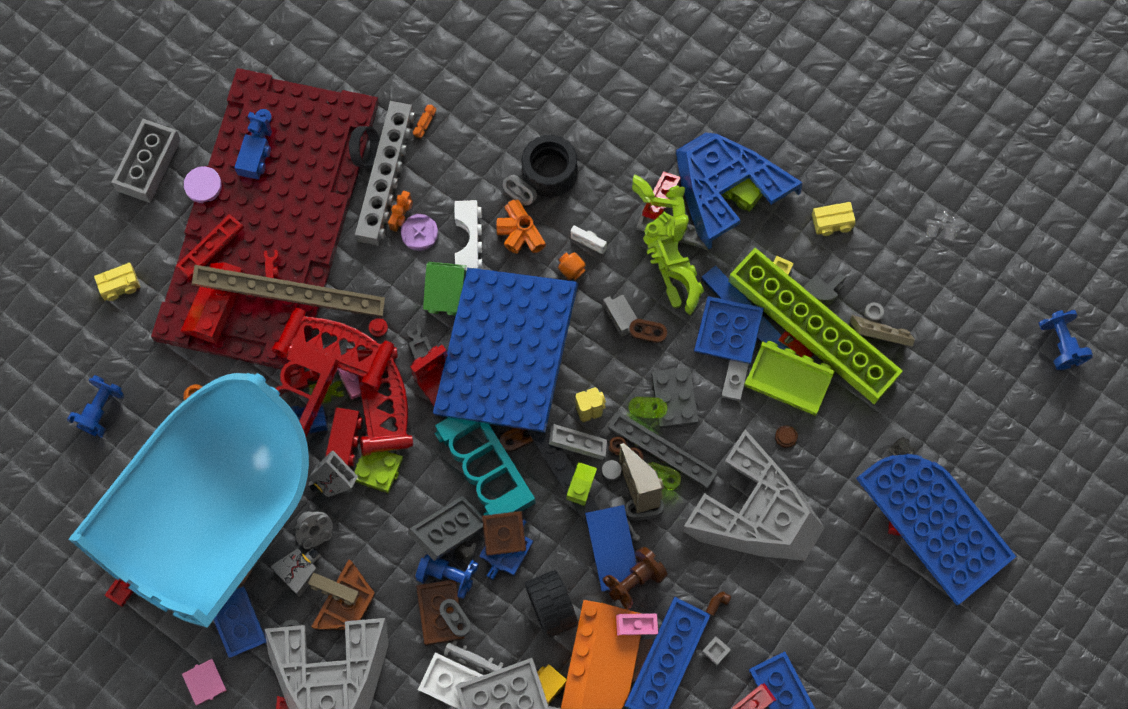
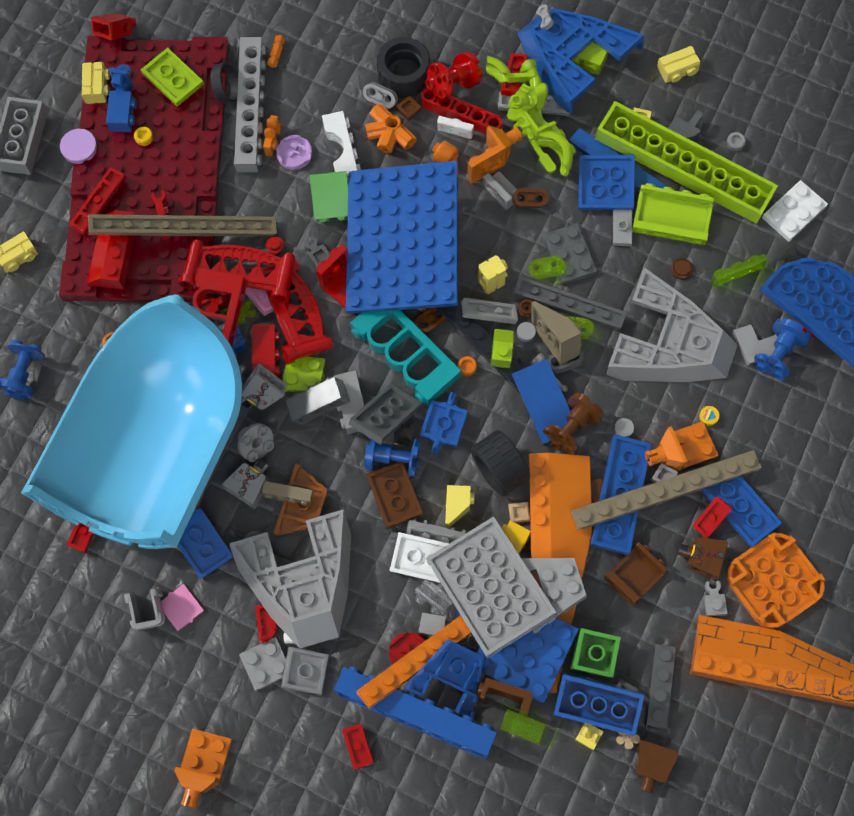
camera: 10 degrees left, 0 degrees up
(156, 665) = (131, 599): none -> light grey piece
(232, 121) = (95, 82): none -> light yellow brick
(264, 63) = (119, 26): none -> red torso
(270, 187) = (143, 136): none -> yellow tile
(312, 130) = (172, 77): none -> lime plate
(384, 499) = (317, 400): none -> dark grey brick
(417, 501) = (356, 402): none -> light grey brick
(455, 618) = (411, 496): dark grey plate -> none
(501, 635) = (457, 503): none -> light yellow slope
(504, 533) = (439, 408): reddish brown plate -> none
(543, 493) = (467, 366): none -> orange tile
(545, 209) = (408, 108): none -> reddish brown plate
(561, 657) = (519, 512): none -> tan tile
(596, 217) = (457, 105): none -> red beam
(609, 182) = (464, 71): none -> red piece
(620, 280) = (496, 155): none -> orange plate
(637, 624) = (585, 466): bright pink plate -> none
(687, 592) = (624, 427): none -> light grey tile
(706, 146) = (544, 12): none -> light grey piece
(713, 666) = (665, 490): none -> dark tan plate
(716, 600) = (653, 431): reddish brown arm -> none
(742, 625) = (683, 448): none -> orange plate
(777, 597) = (709, 415): none -> yellow tile
(791, 342) = (667, 182): red sticker -> none
(841, 538) = (750, 345): none -> light grey tile
(842, 450) = (738, 270): none -> clear neon green plate
(875, 533) = (789, 335): none -> blue piece
(881, 331) = (750, 155): dark tan wing -> none
(917, 399) = (794, 211): none -> white plate
(950, 229) = (787, 52): clear hips -> none

